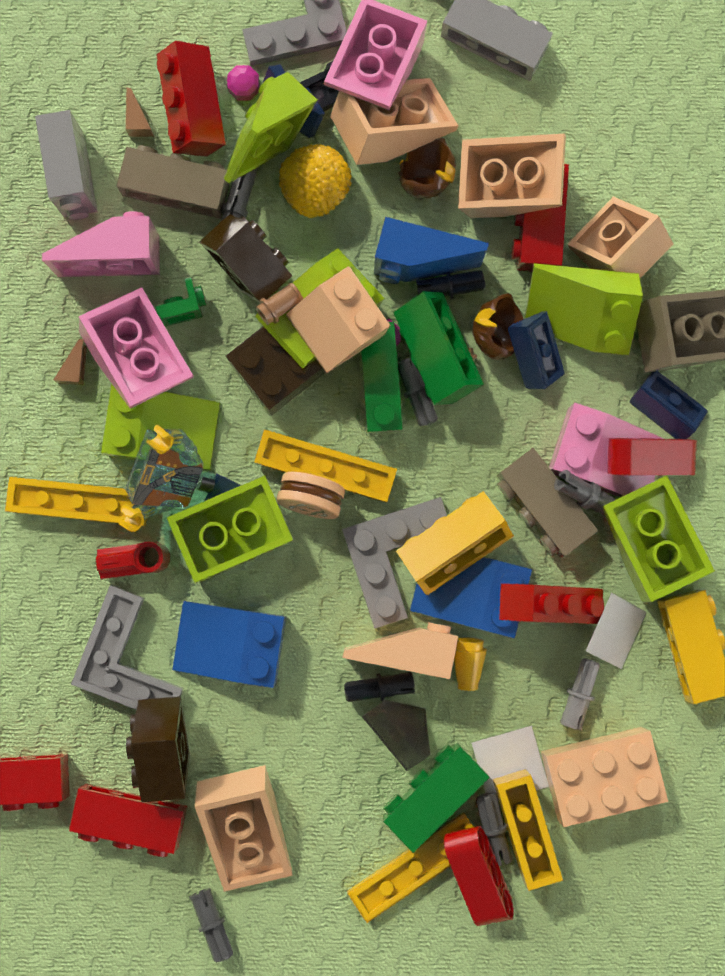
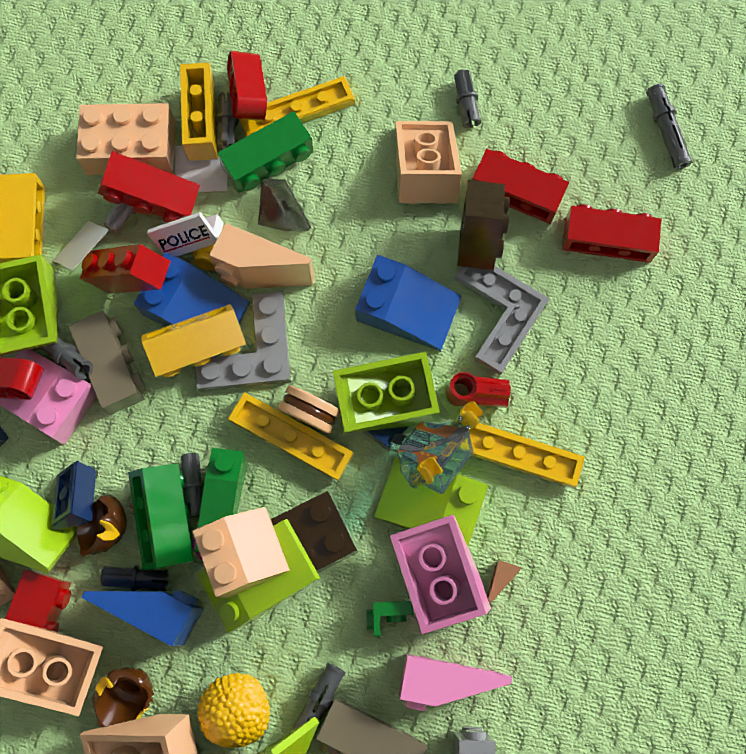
camera: 165 degrees left, 10 degrees down
(246, 257) = (315, 641): dark brown brick -> none
(279, 304) = (292, 580): medium nougat pin -> none
(380, 687) = (299, 244): black axle -> none
(494, 667) = (186, 234): none -> white panel
(556, 711) = (147, 188): none -> red brick

